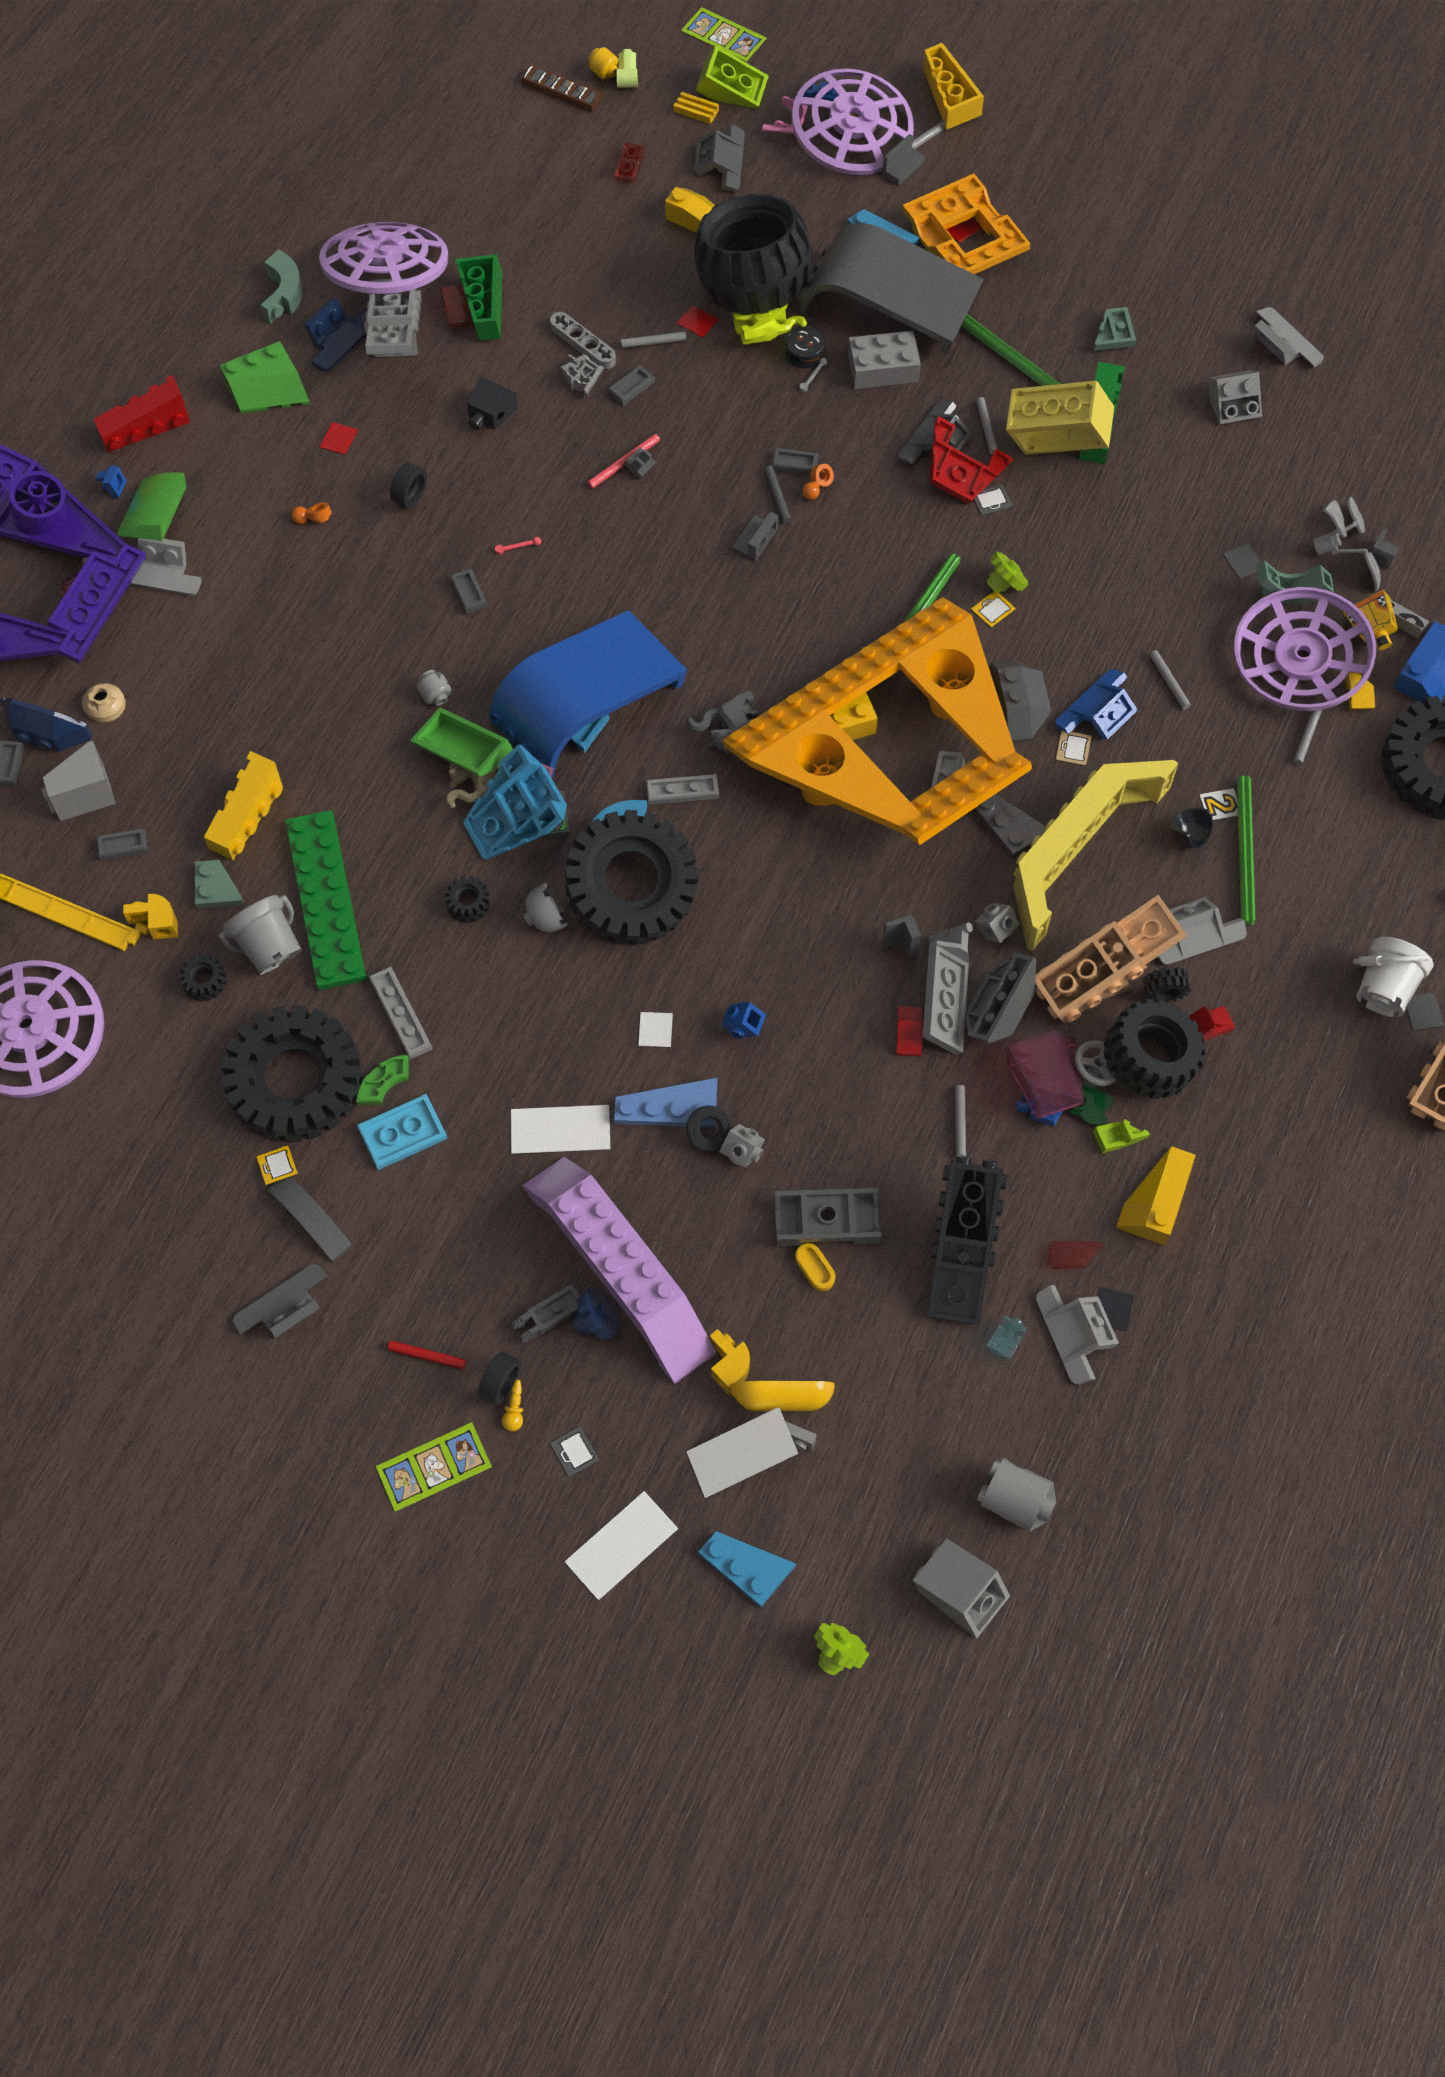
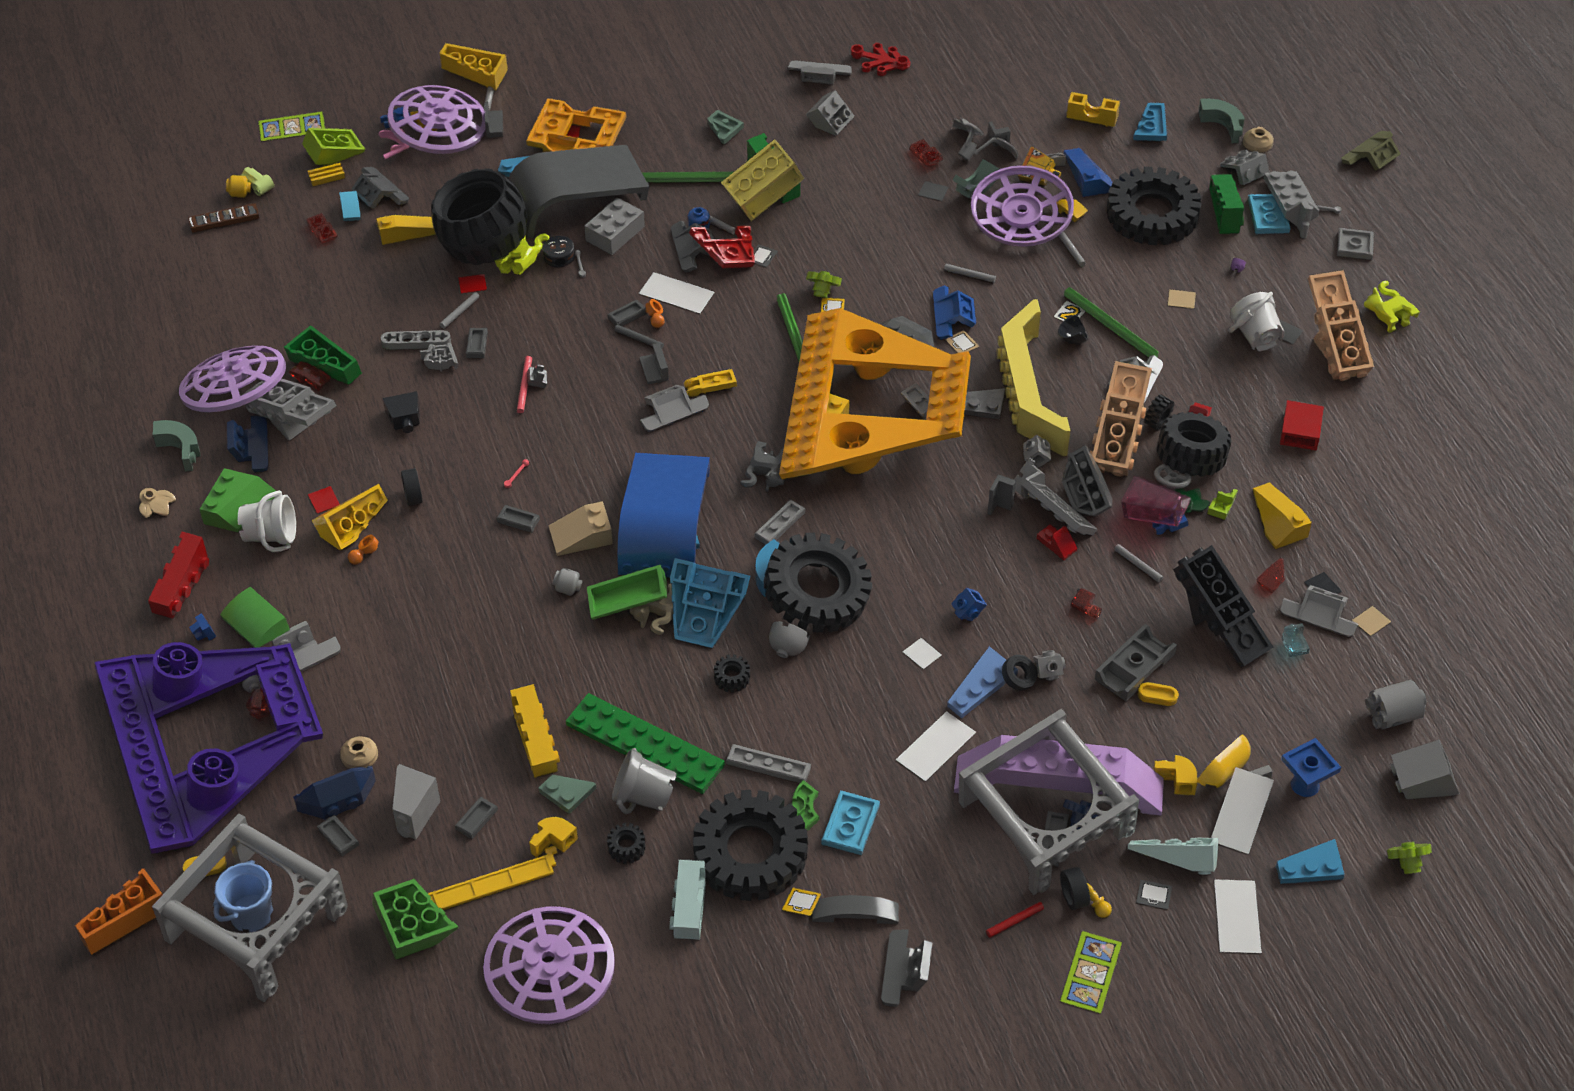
camera: 45 degrees left, 15 degrees down
(184, 1077) = (689, 900): none -> light aqua wedge
(206, 332) = (157, 503): none -> tan plate
(260, 422) = (269, 521): none -> white piece
(330, 474) = (346, 521): none -> yellow wedge
(502, 646) = (582, 530): none -> tan slope
(603, 1344) = (1039, 860): none -> light grey arch
(642, 1444) = (1194, 855): none -> light aqua wedge
(676, 155) = (350, 206): none -> medium azure slope
(721, 589) = (671, 406): none -> light grey plate
(785, 594) = (710, 382): none -> yellow hinge
(844, 1460) = (1310, 766): none -> blue plant
(856, 1113) = (1083, 602): none -> clear red piece
(867, 475) = (676, 292): none -> white sticker
(969, 412) = (699, 216): none -> blue head
(1117, 1388) = (1371, 620): none -> tan sticker
(1284, 513) = (925, 153): none -> clear red slope
(1303, 1124) = (1301, 425): none -> red brick
(1357, 884) = (1181, 298): none -> tan sticker
(1378, 391) = (900, 62): none -> red plant

